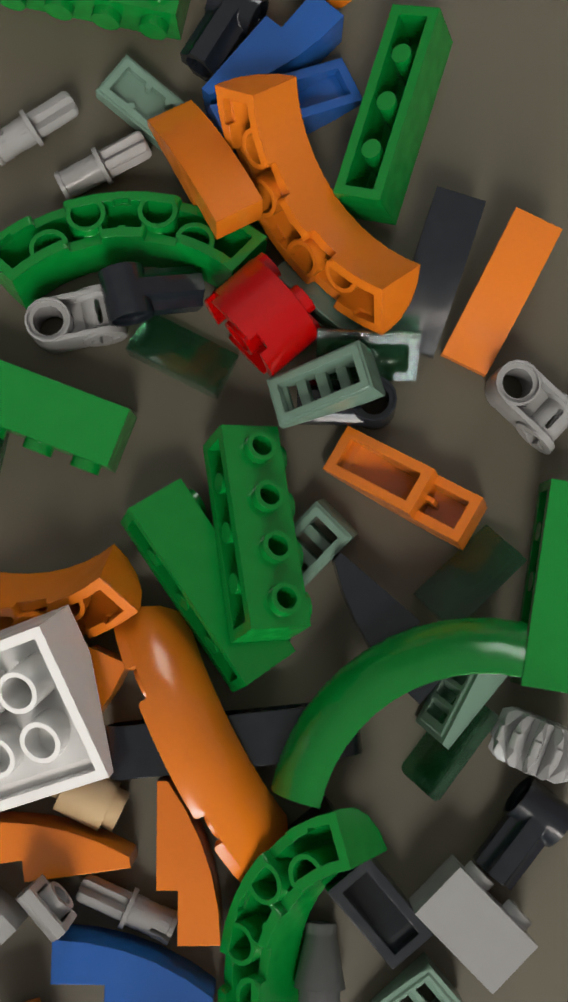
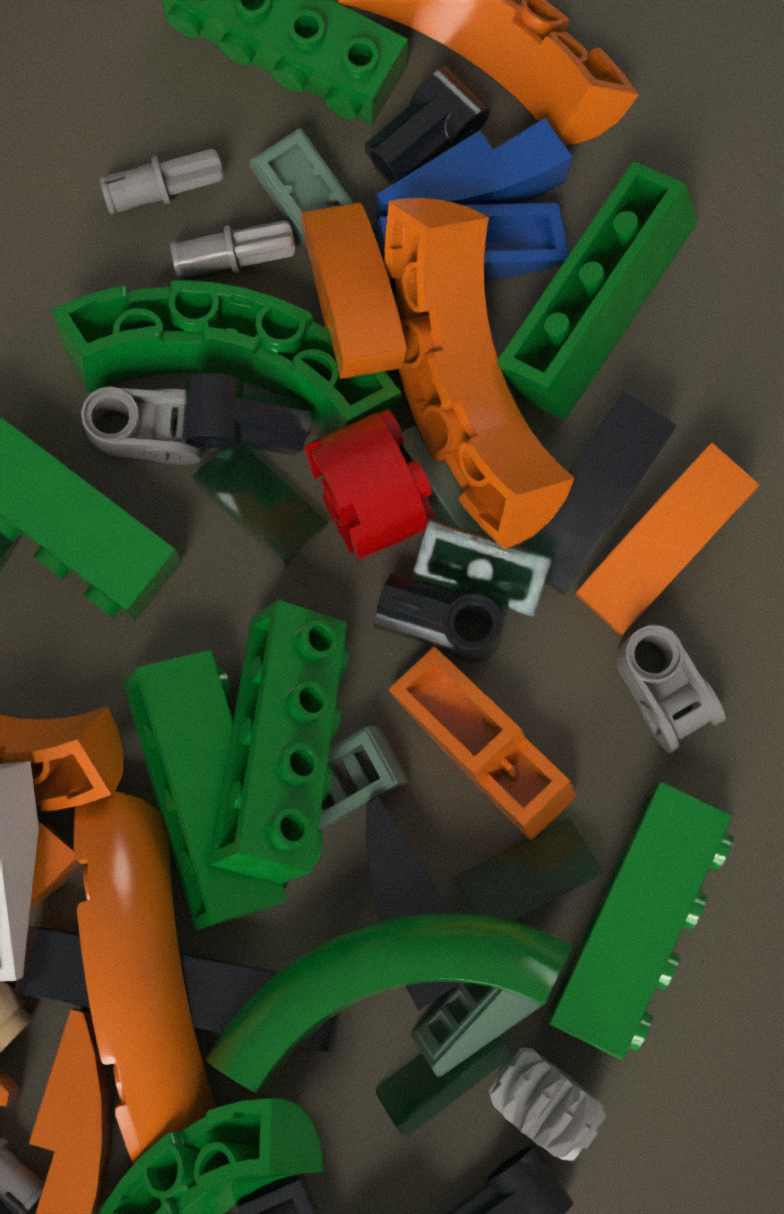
camera: 10 degrees right, 5 degrees down
(350, 395) = (446, 609): sand green slope -> none

